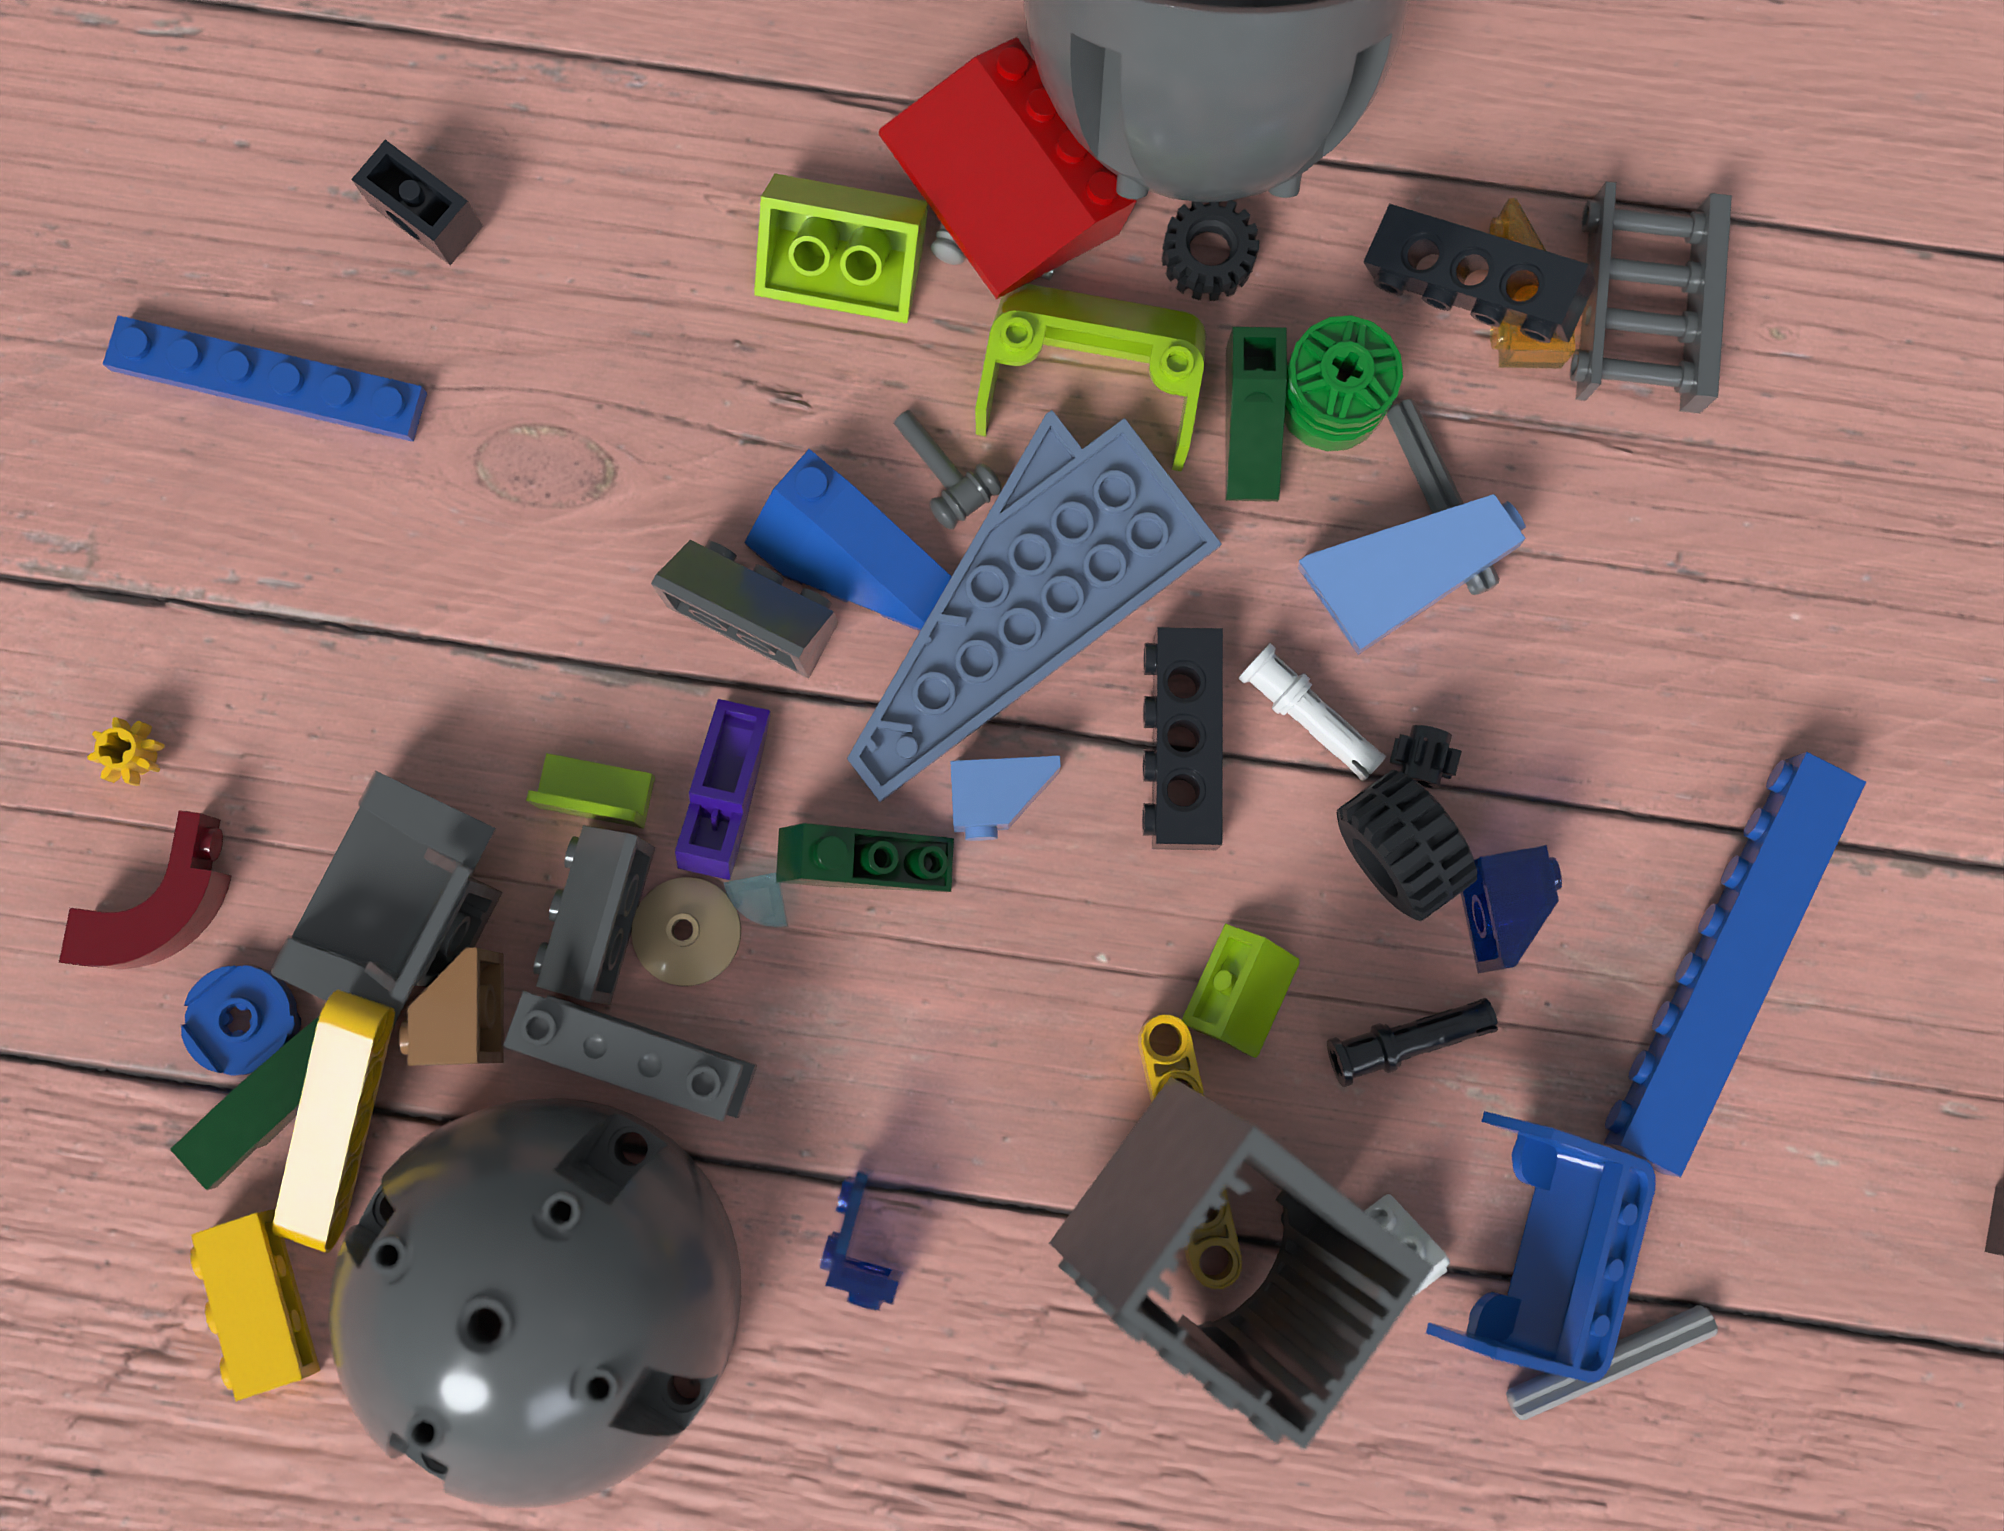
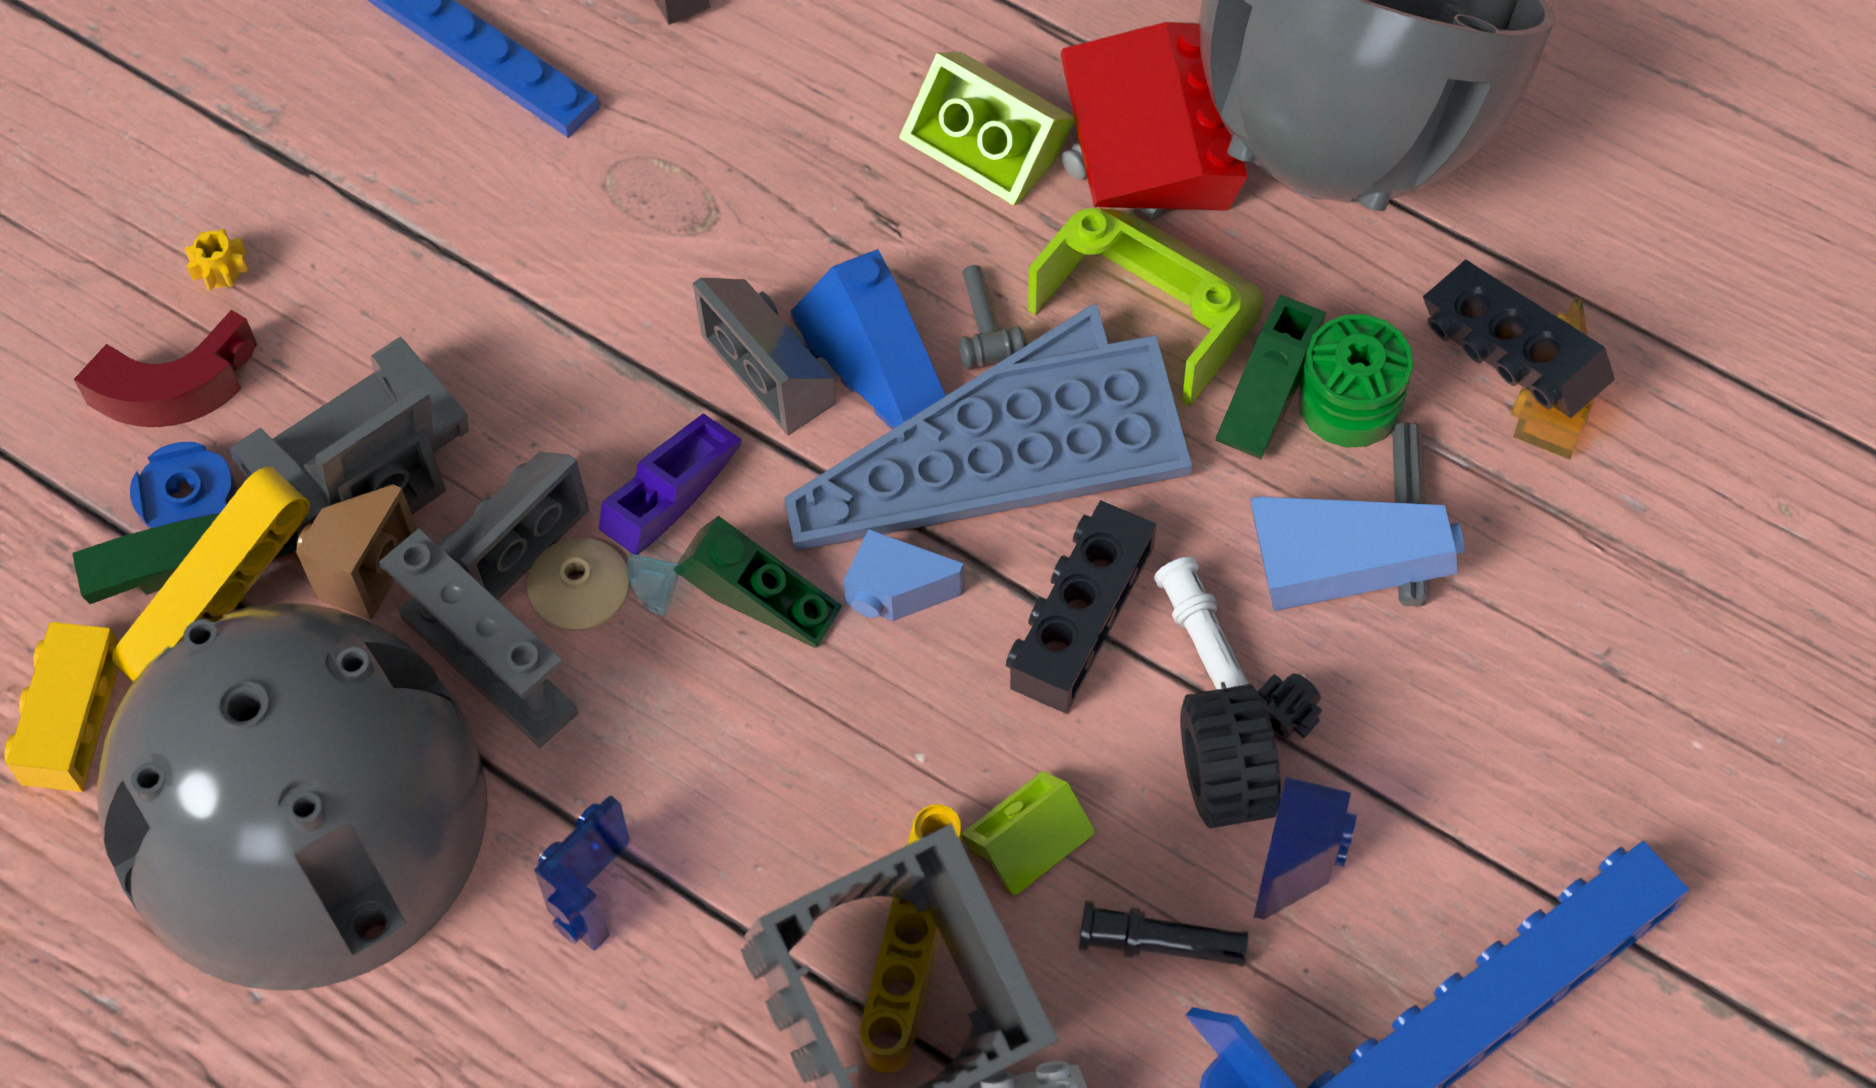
camera: 30 degrees right, 20 degrees down
(593, 791) = (554, 431): lime panel -> none
(1202, 277) = (1300, 222): black tyre -> none
(1701, 278) = (1701, 466): dark grey fence -> none

